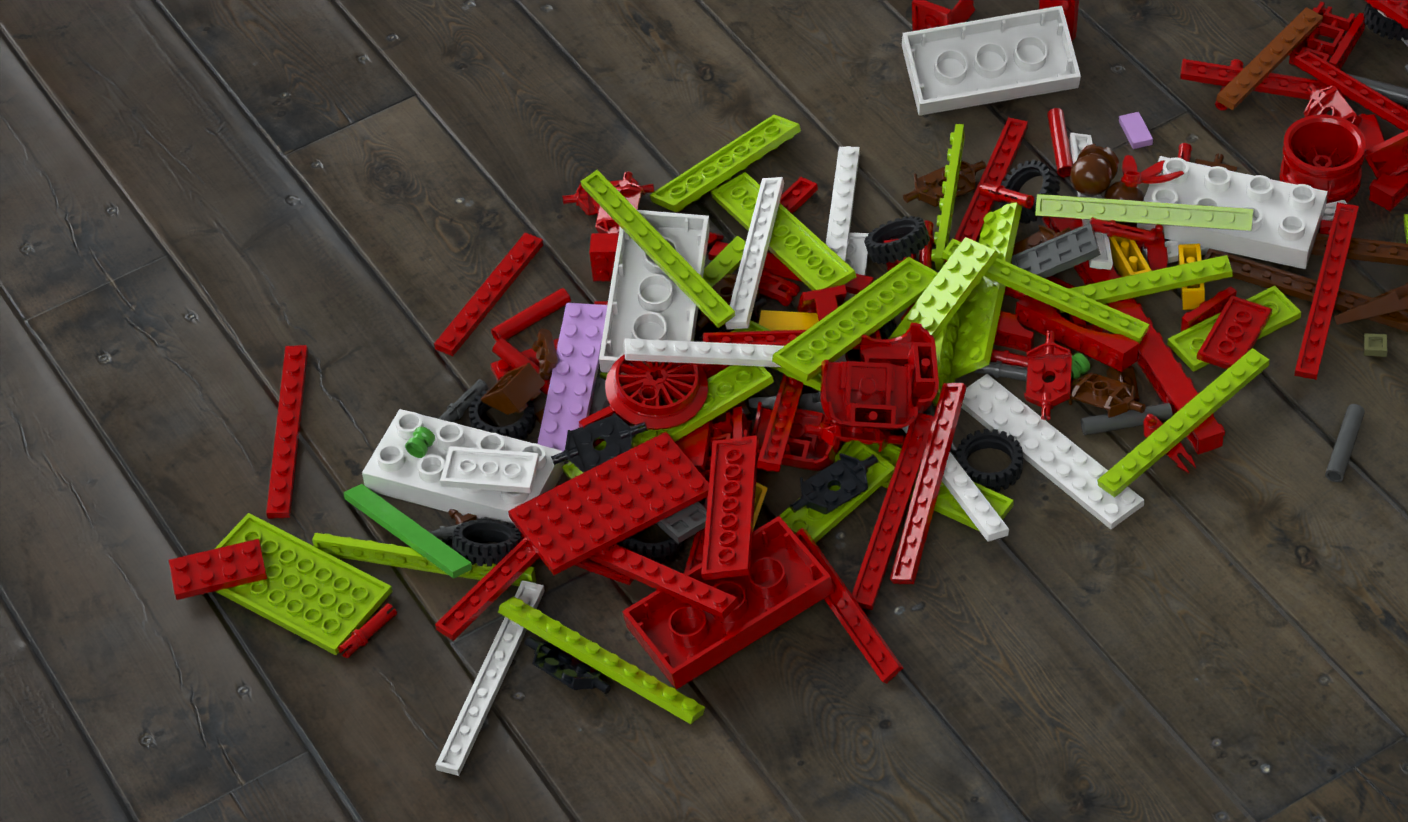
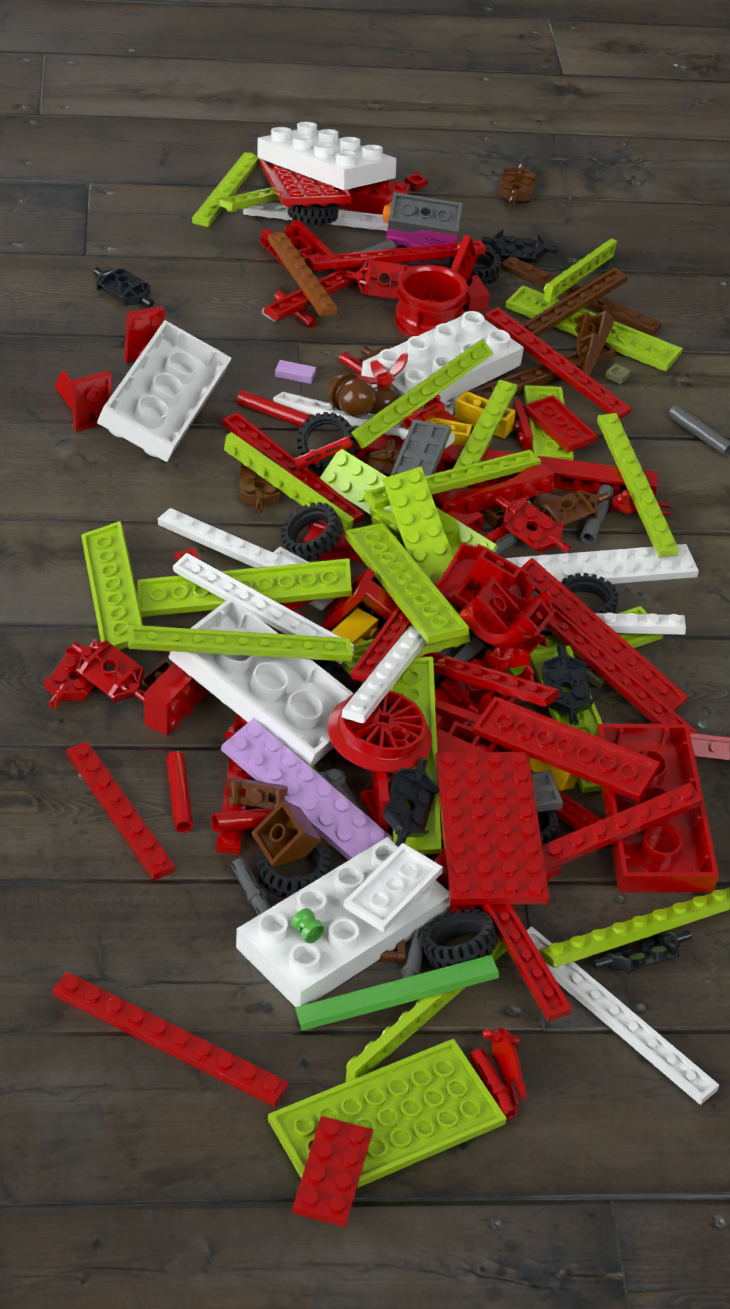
camera: 70 degrees left, 5 degrees down
(411, 613) = (508, 1060): none -> red piece

